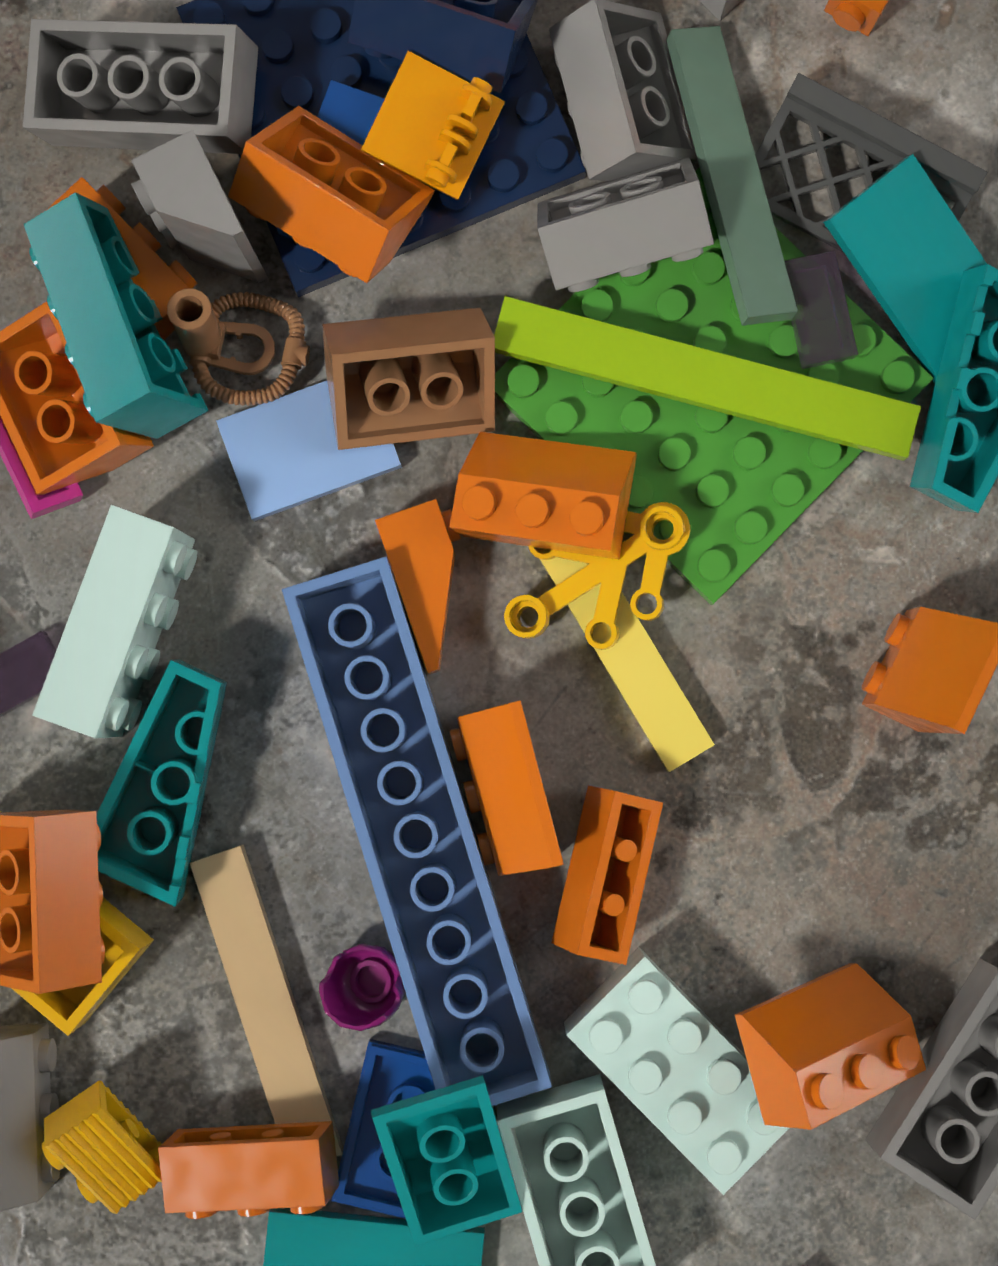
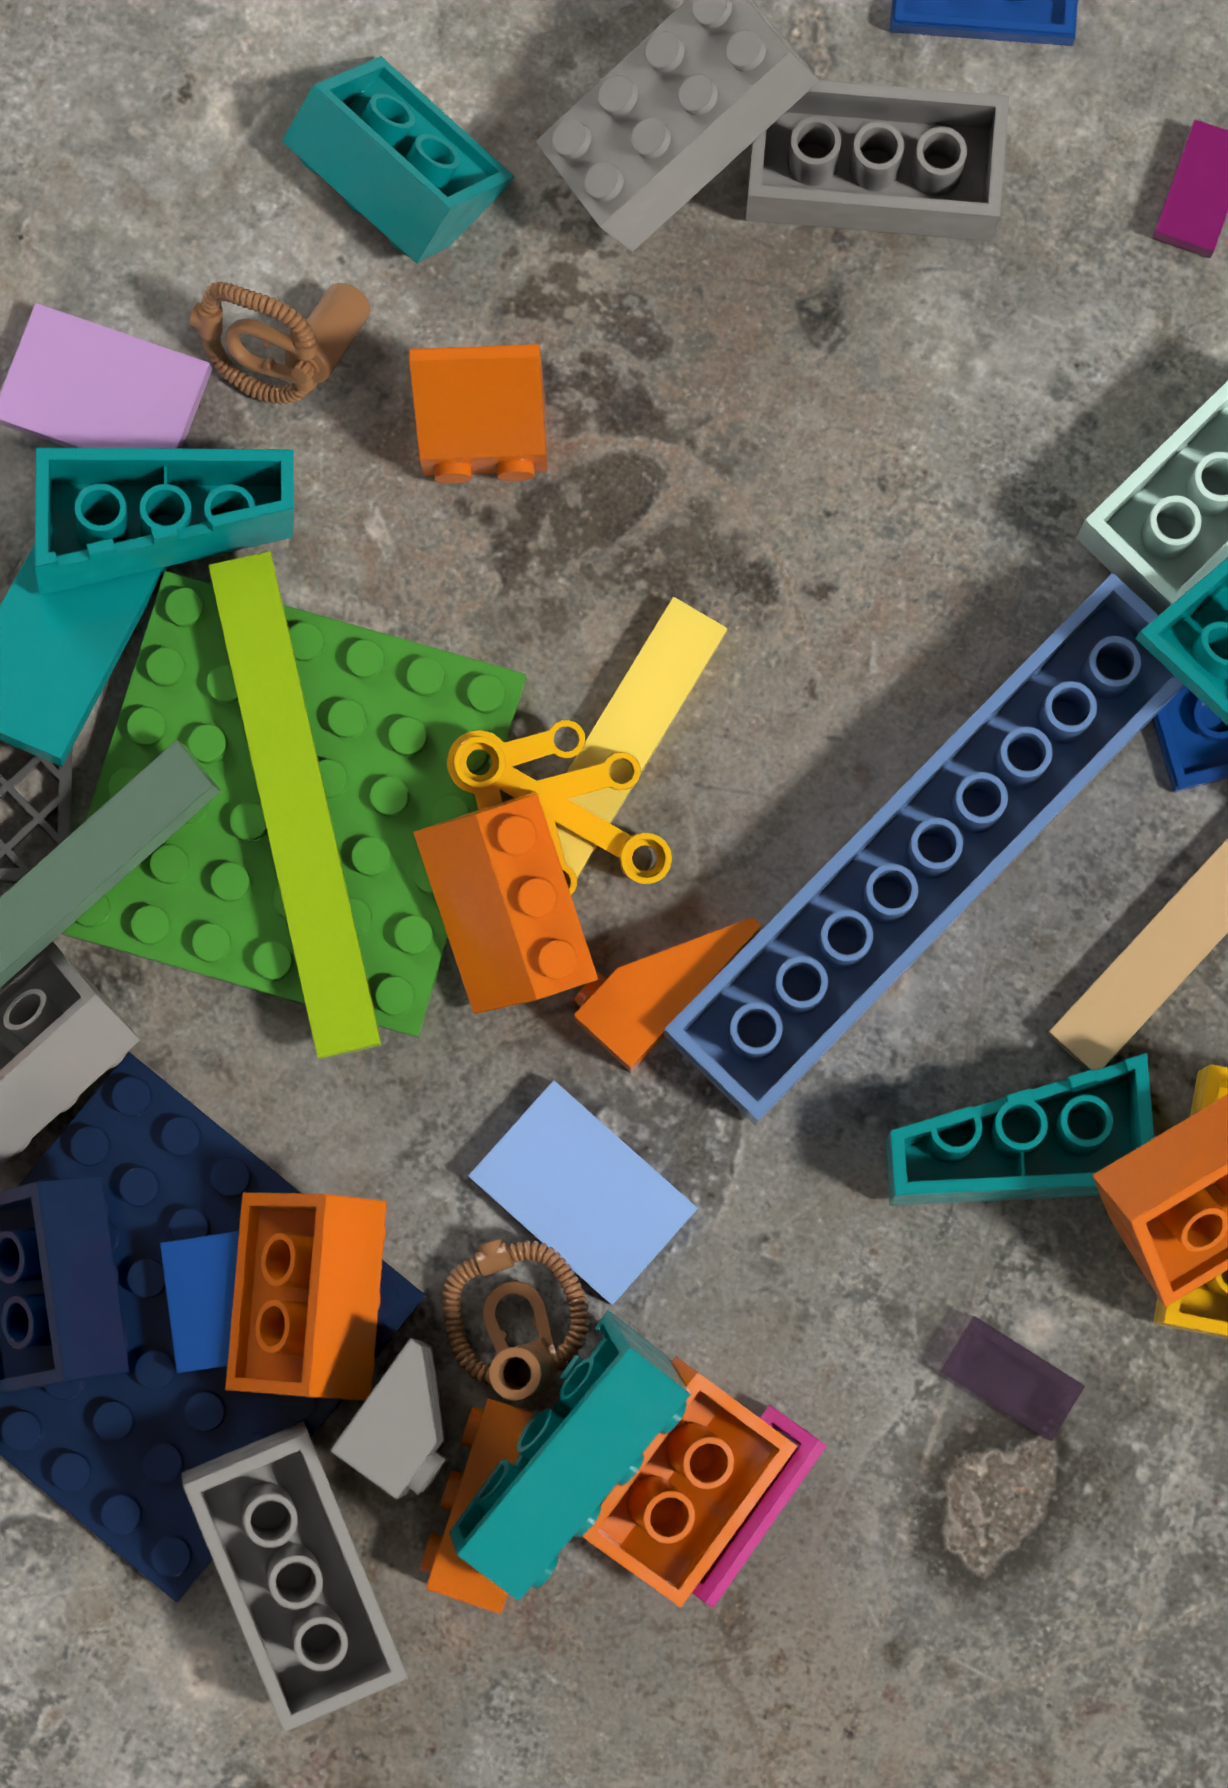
camera: 115 degrees left, 5 degrees down
(116, 625) = (892, 1278): light aqua brick -> none
(362, 987) = (1122, 821): magenta hair -> none
(410, 377) = (455, 1115): medium nougat slope -> none
(433, 124) = (174, 1229): light orange hinge -> none
(506, 790) = (835, 780): orange slope -> none
(607, 874) = (868, 633): orange brick -> none
(624, 225) = (172, 974): light grey slope -> none
(675, 1069) = (1024, 458): light aqua brick -> none
(823, 319) = (168, 711): tile -> none
(827, 1048) = (919, 323): orange slope -> none

